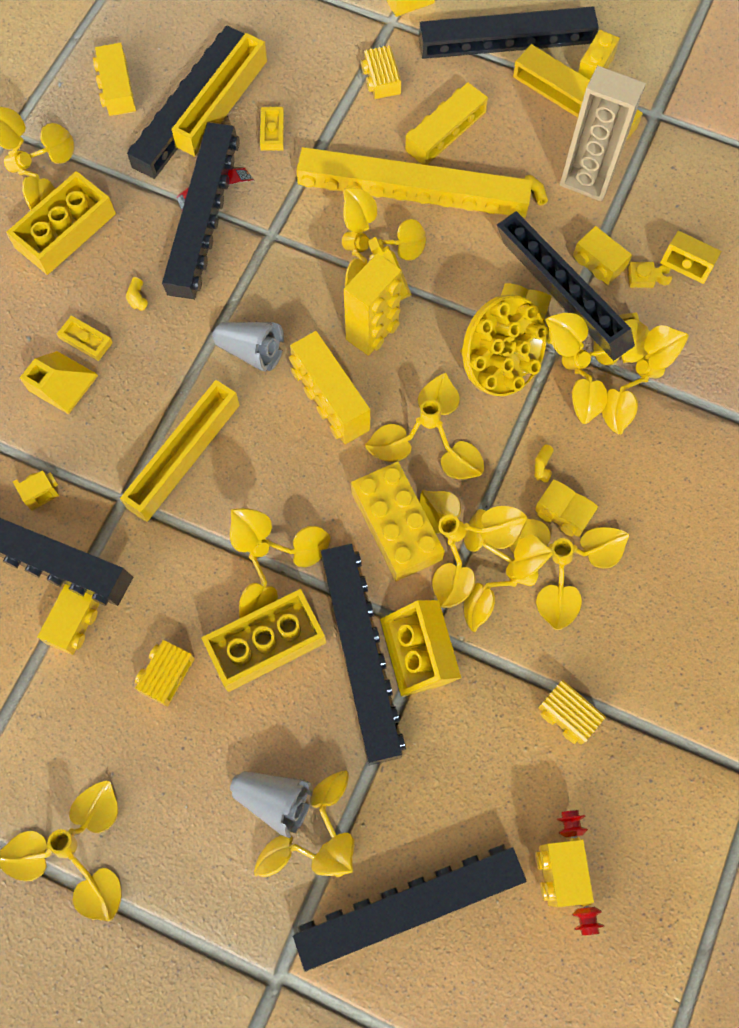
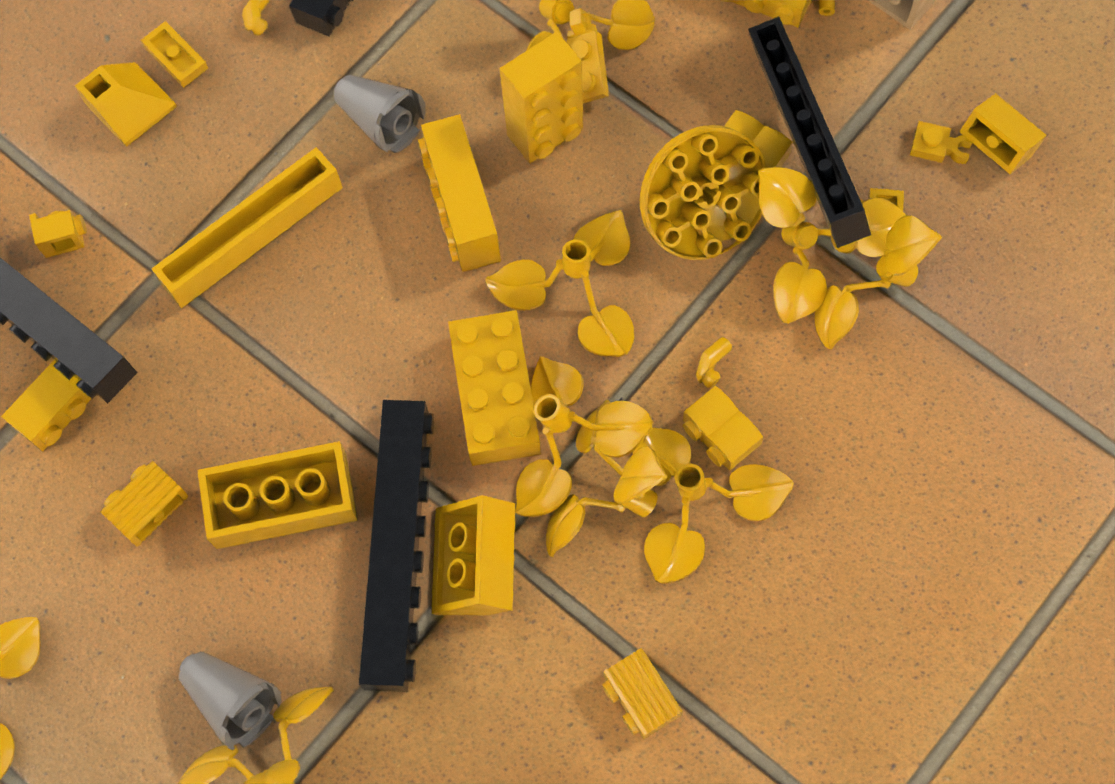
camera: 20 degrees right, 0 degrees up
(248, 534) = (295, 352): yellow plant -> none
(601, 255) = (881, 103): yellow brick -> none

